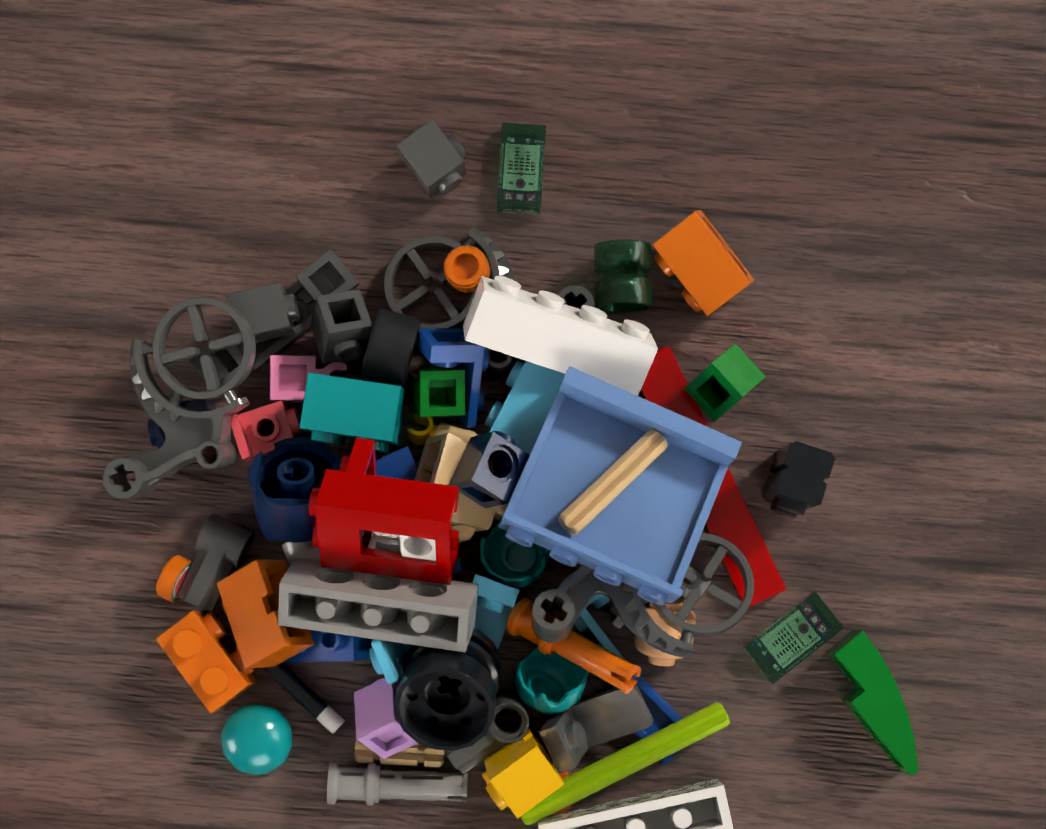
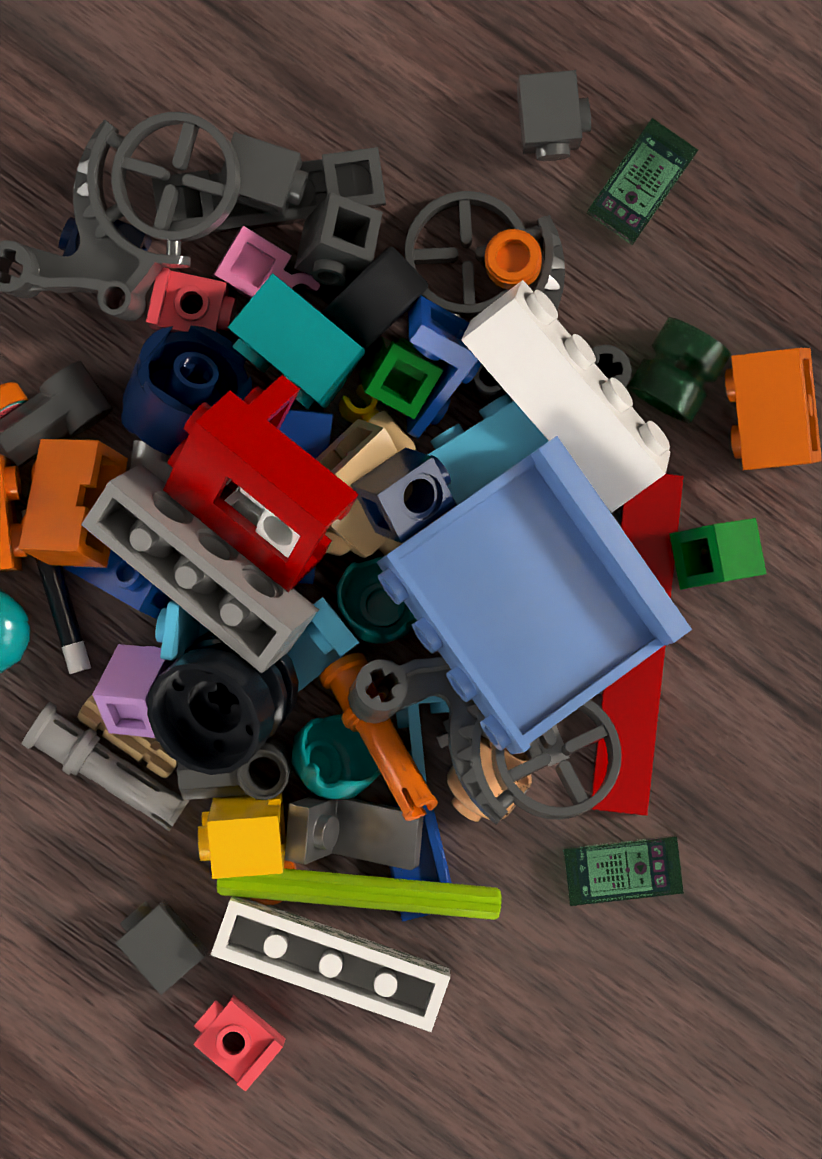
camera: 30 degrees right, 5 degrees up
(612, 482) = (527, 588): tan axle -> none
(797, 478) = (730, 705): black brick -> none
(876, 699) = (670, 987): green slope -> none

